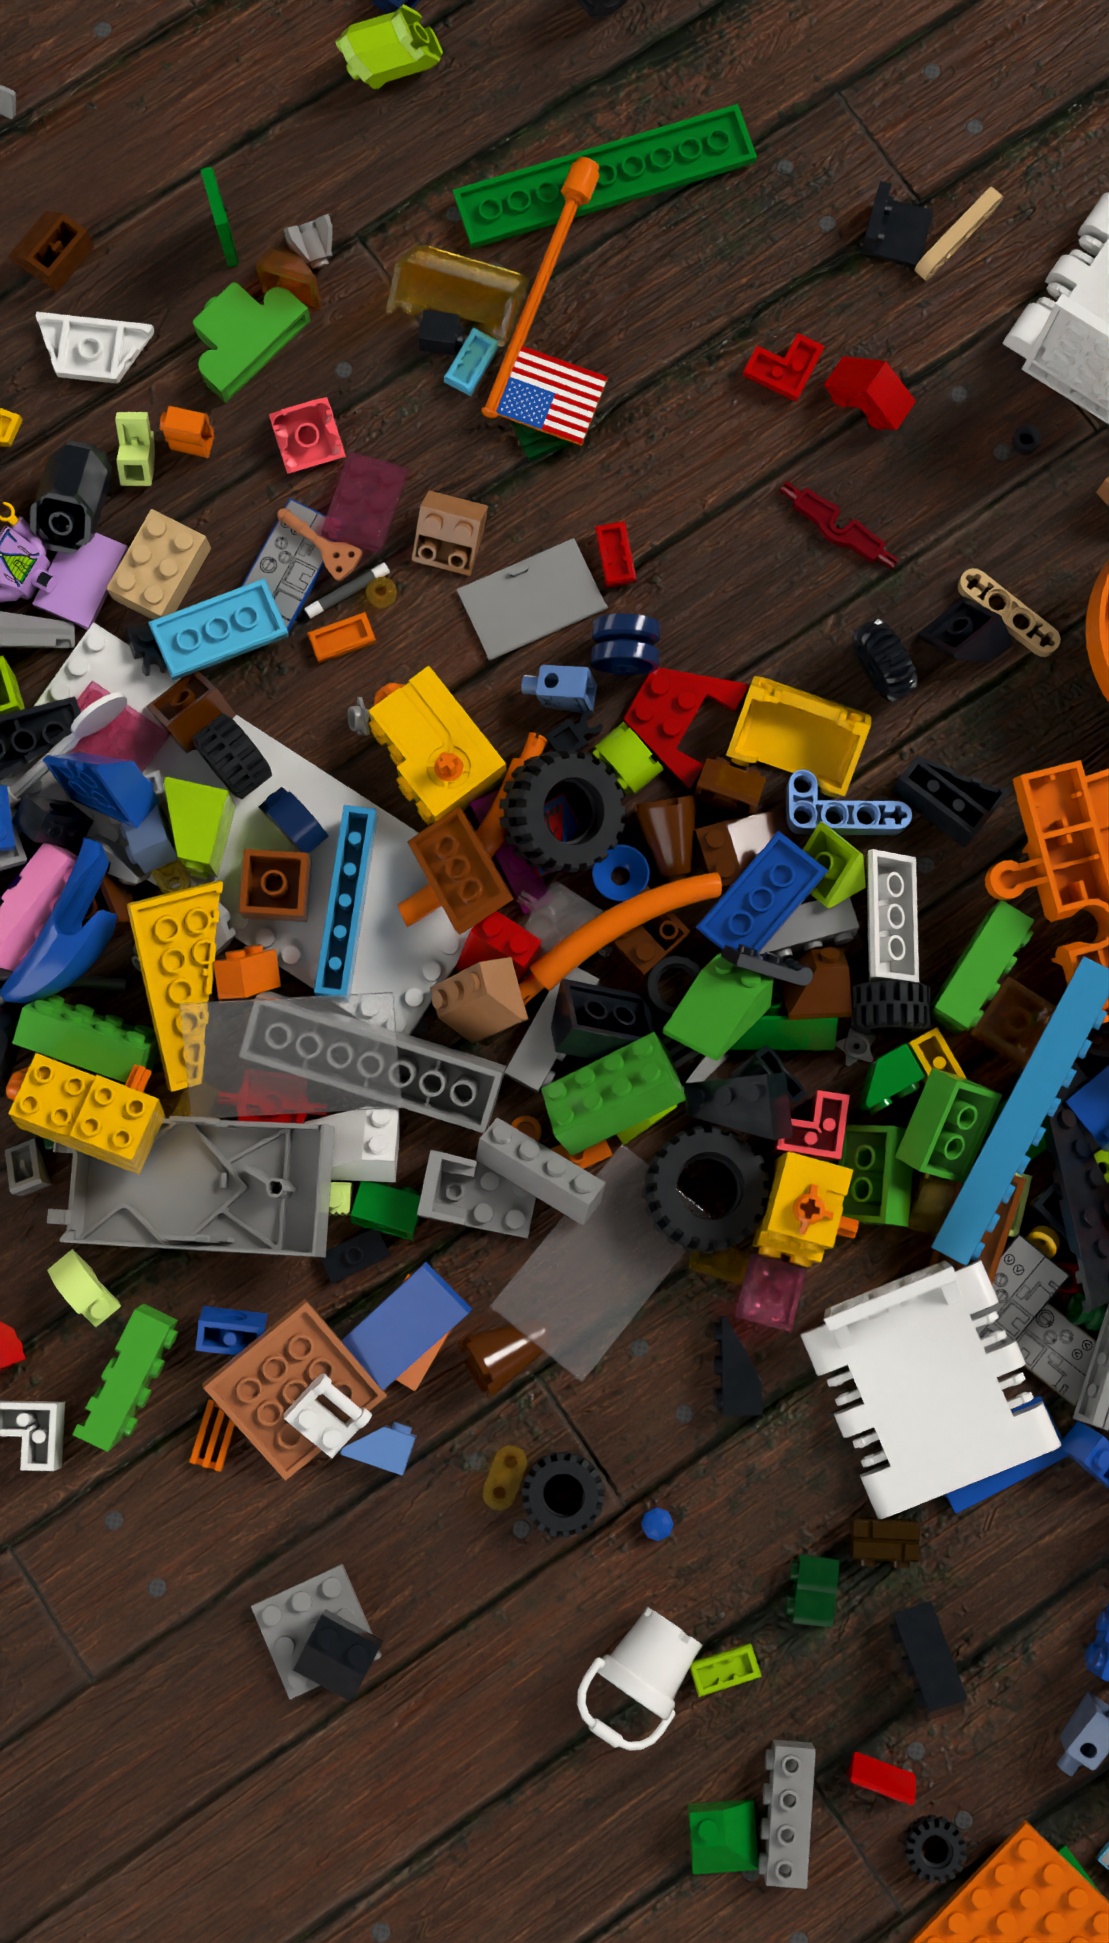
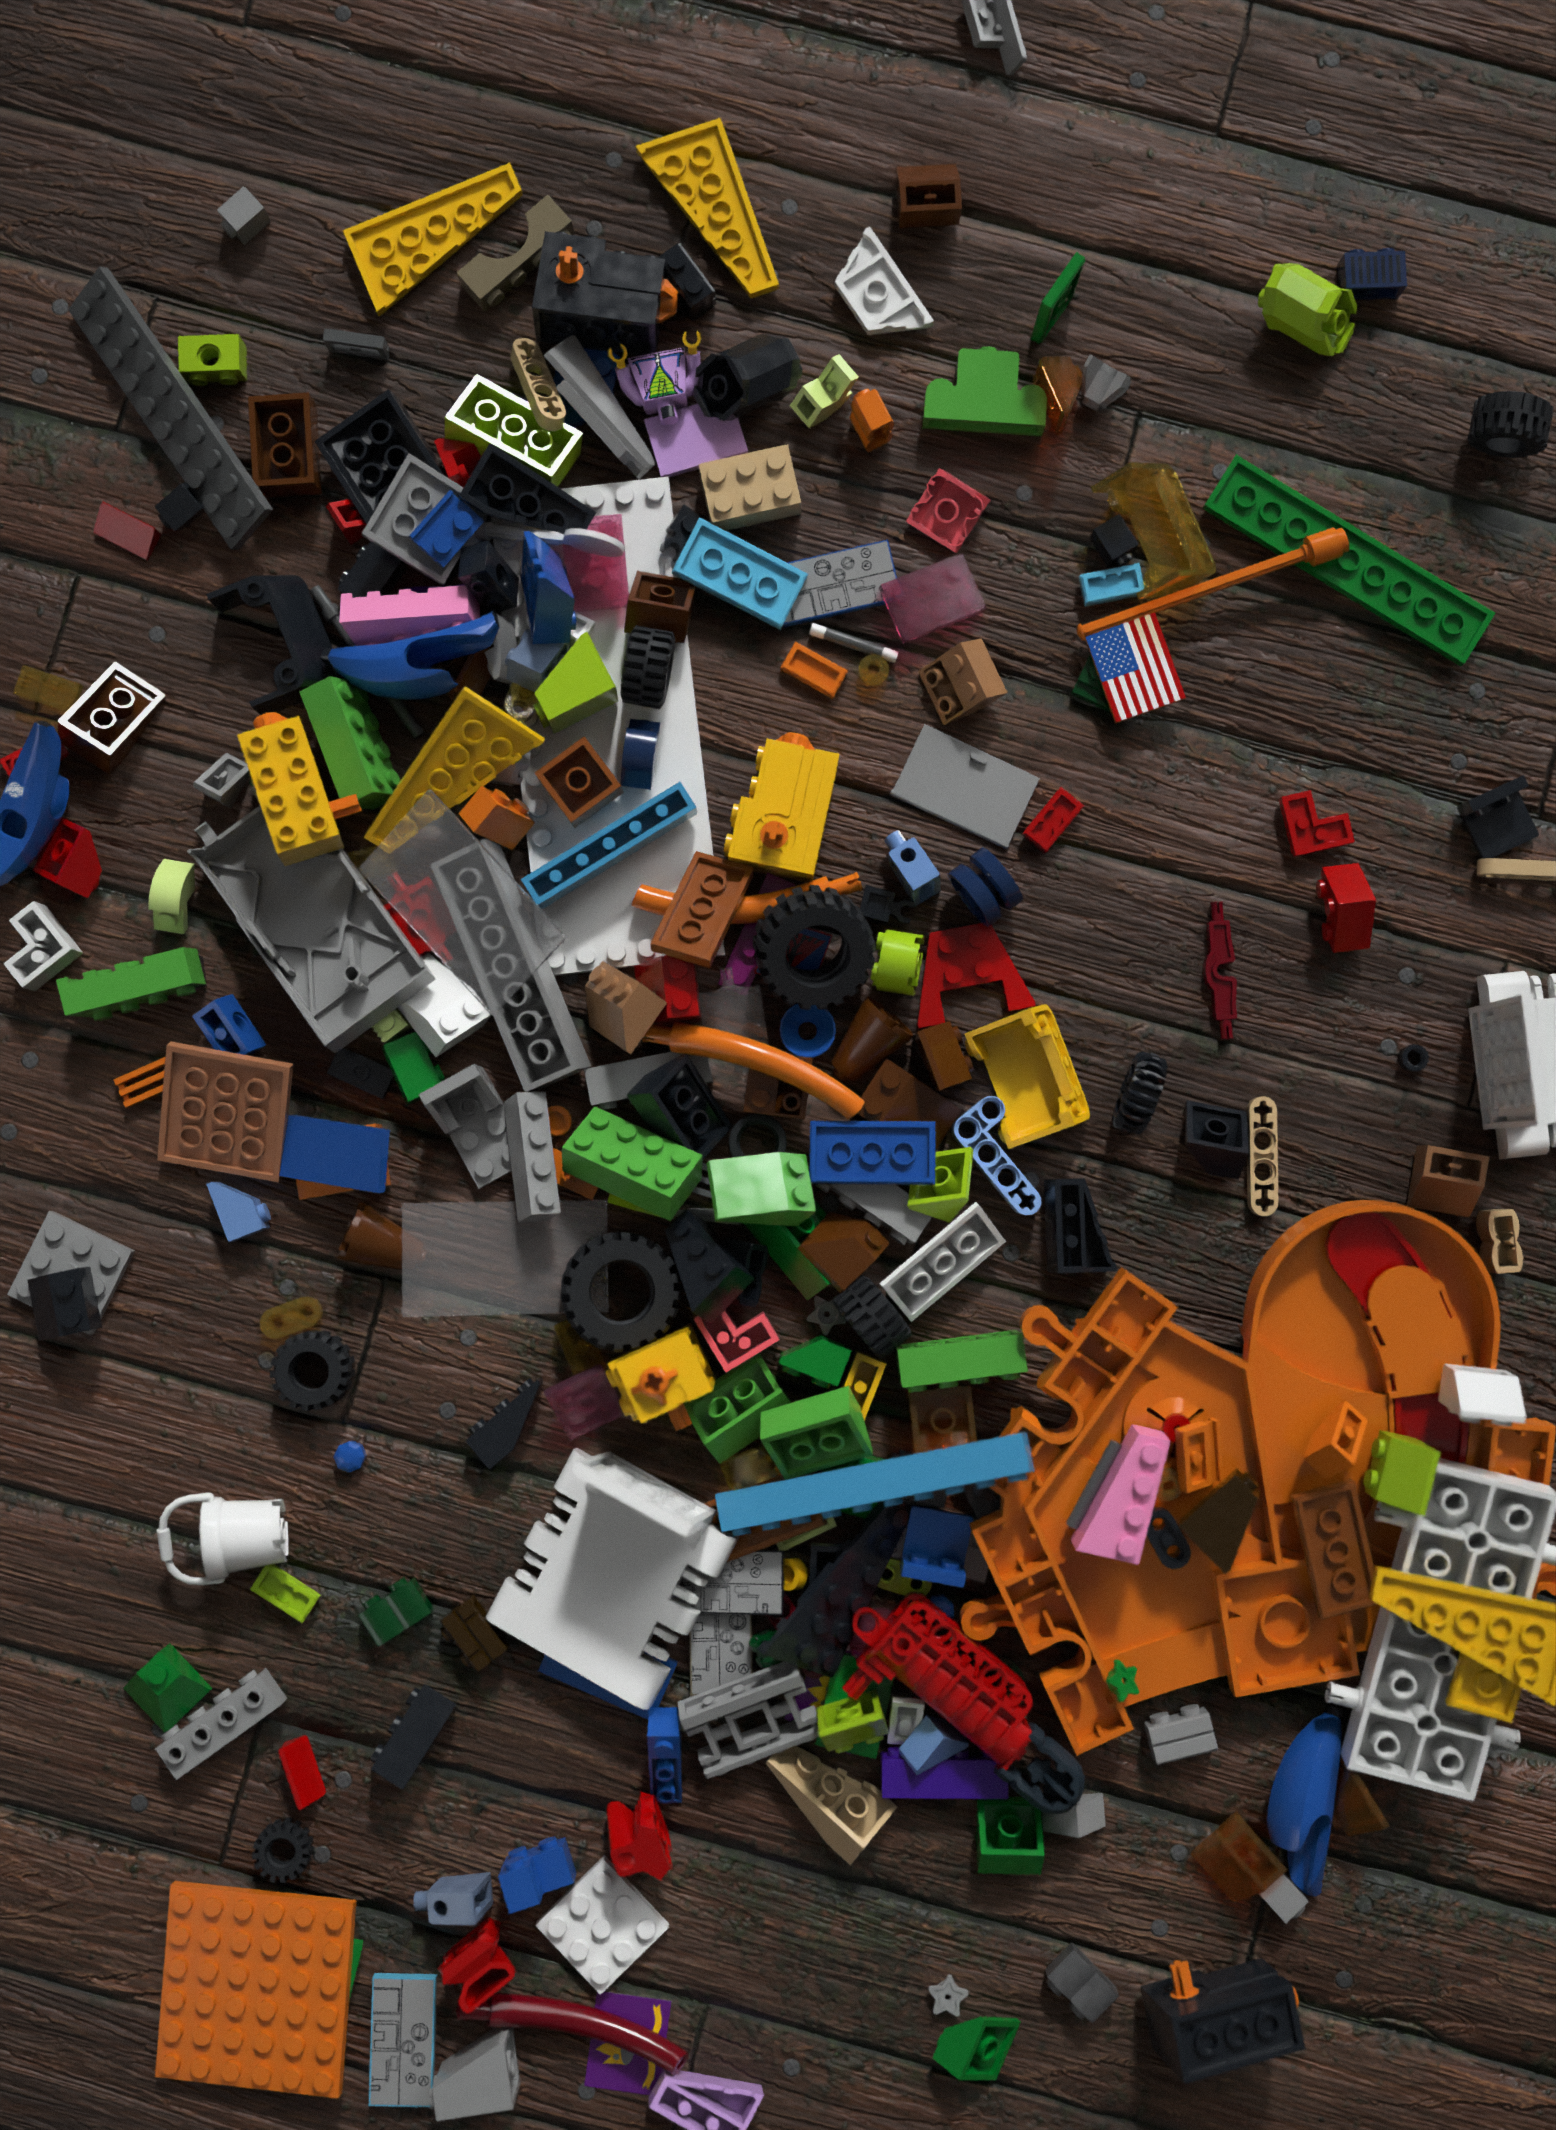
camera: 50 degrees right, 5 degrees up
(321, 1424) = (215, 1150): white plate -> none
(327, 548) = (871, 601): nougat piece -> none
(358, 718) = (760, 734): light grey plate -> none
(769, 964) = (823, 1198): black plate -> none

